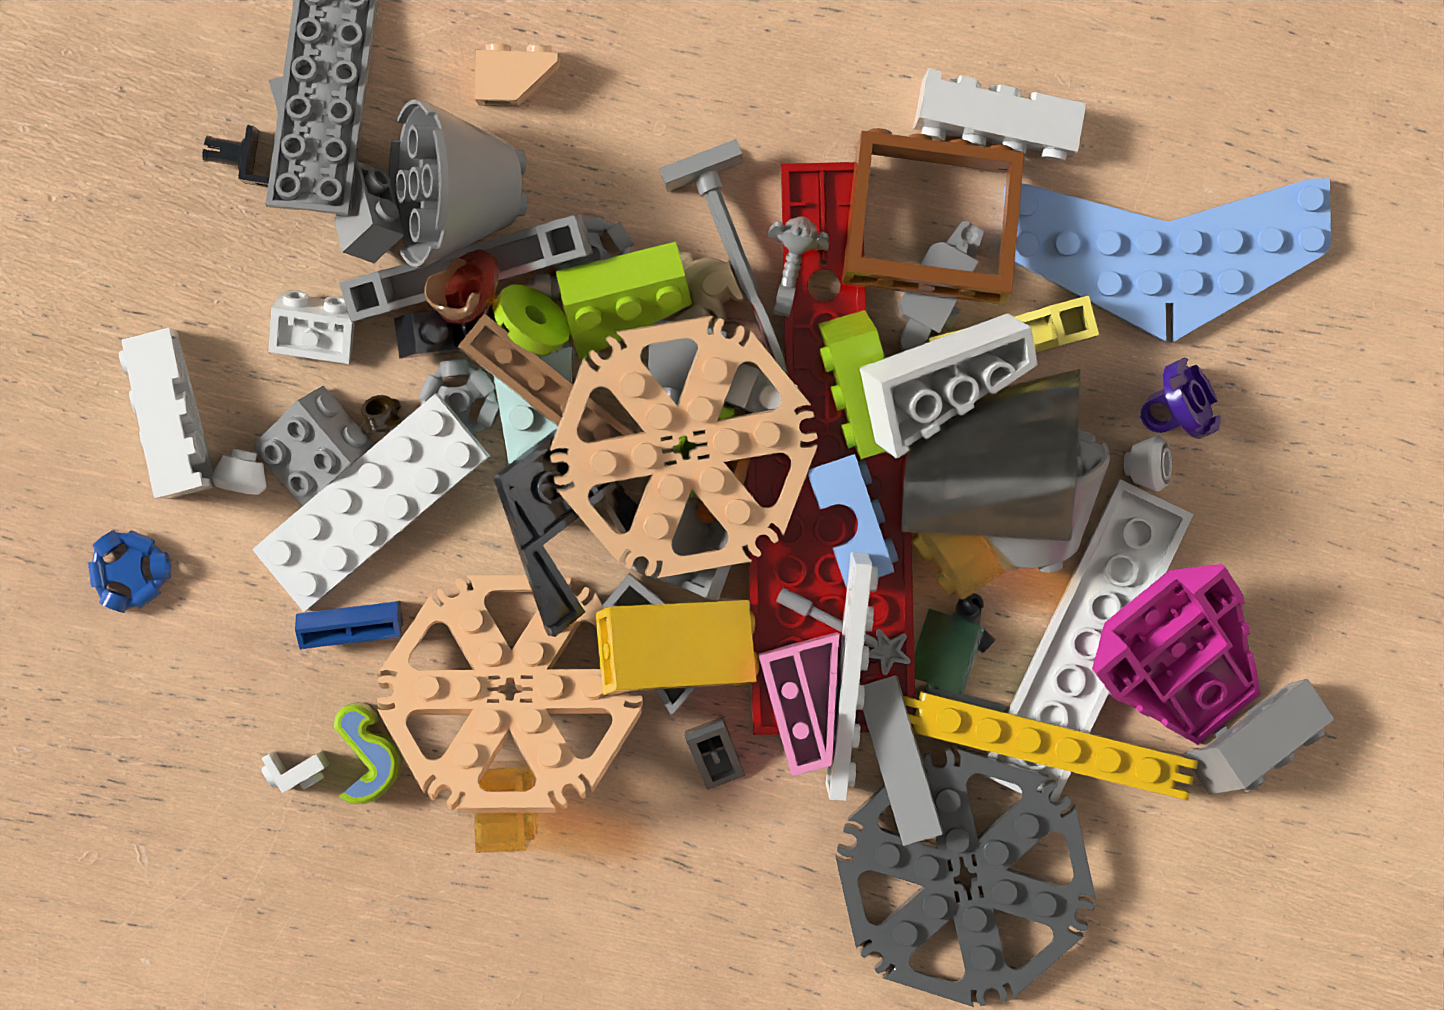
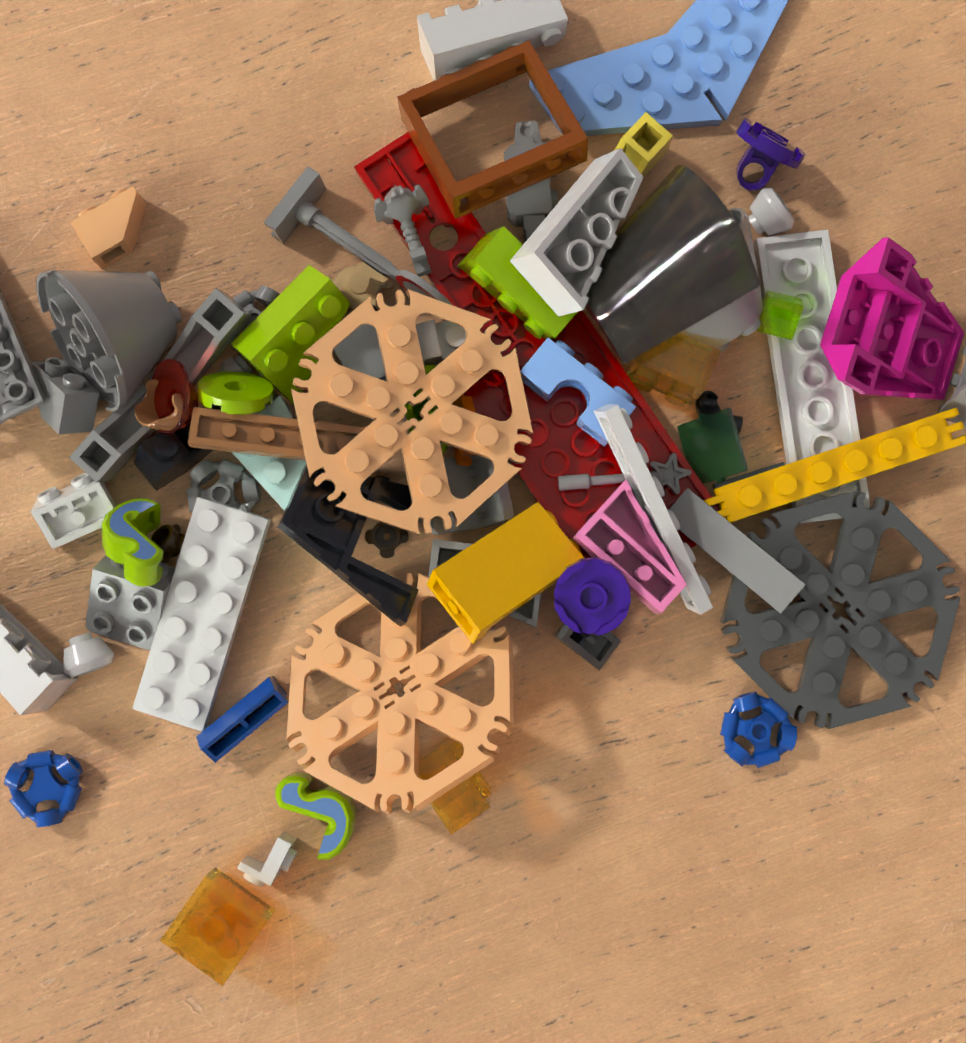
camera: 30 degrees left, 5 degrees down
(212, 799) = (217, 925): none -> clear yellow brick
(344, 399) = (127, 540): none -> lime animal
(581, 547) = (386, 547): none -> dark brown plate
(739, 721) = (592, 596): none -> dark purple tile
(816, 937) = (757, 730): none -> blue piece
(1092, 567) = (780, 315): none -> clear neon green slope

